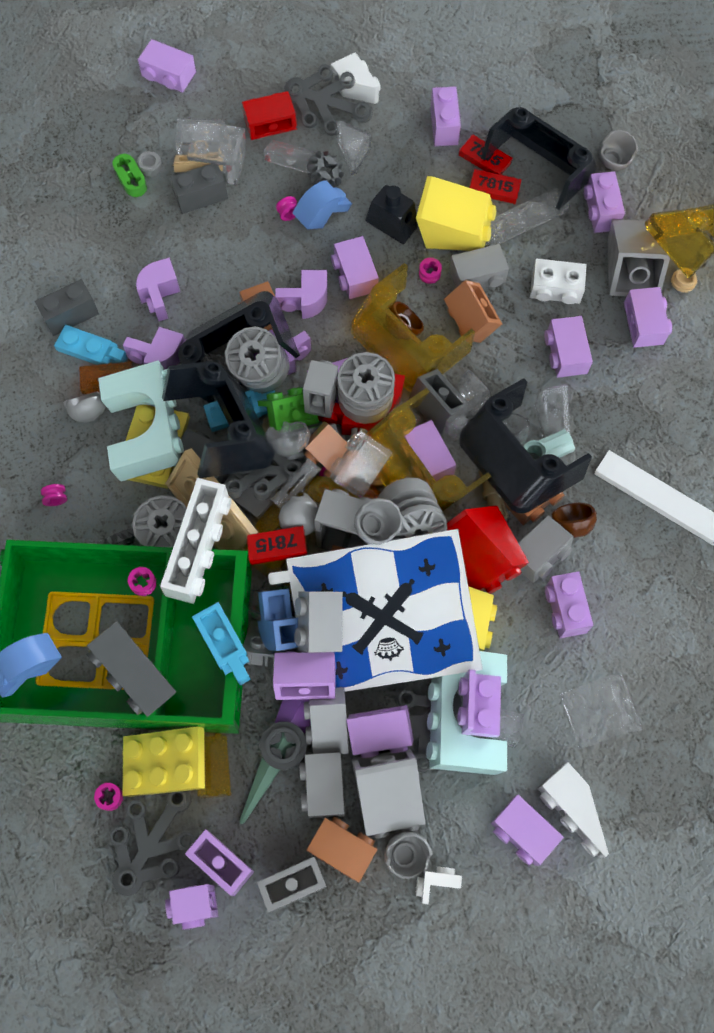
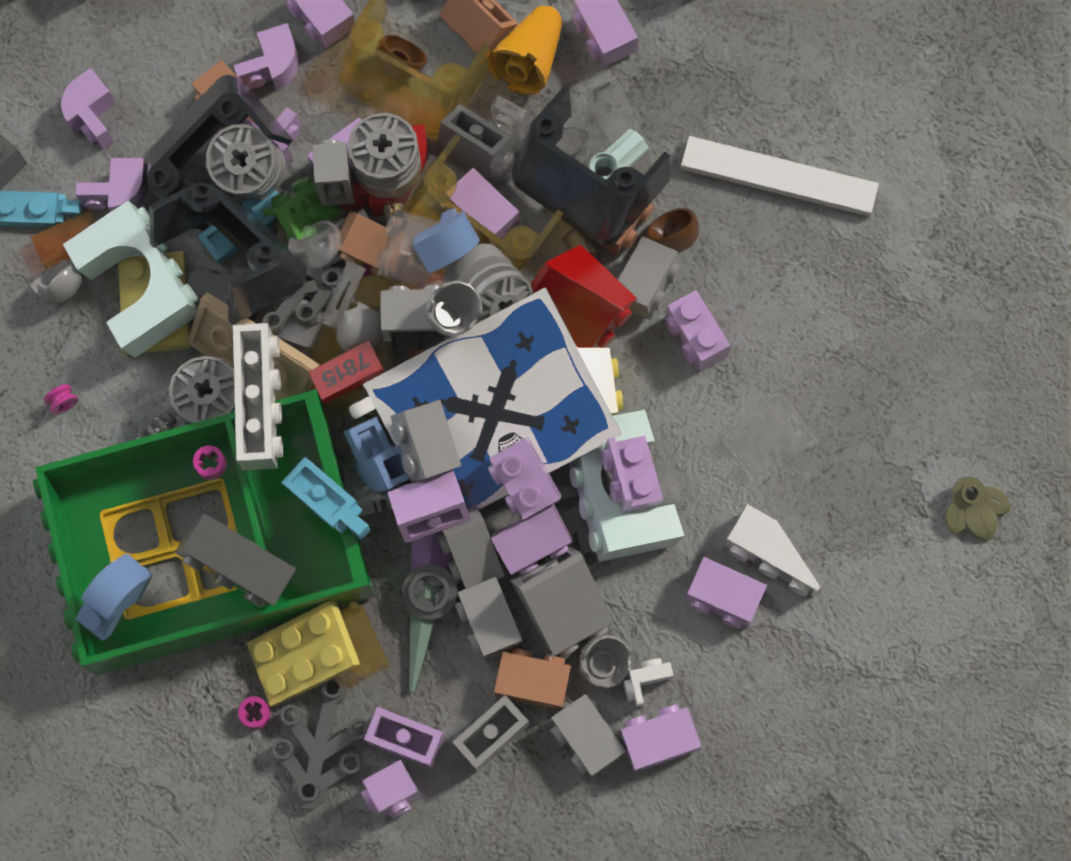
camera: 15 degrees left, 5 degrees up
(372, 916) = (587, 737): none -> light grey brick
(390, 466) = (445, 241): none -> medium blue brick
(390, 679) = (524, 478): none -> lavender brick
(432, 940) = (660, 738): none -> lavender brick
(502, 347) = (528, 52): none -> light orange cone

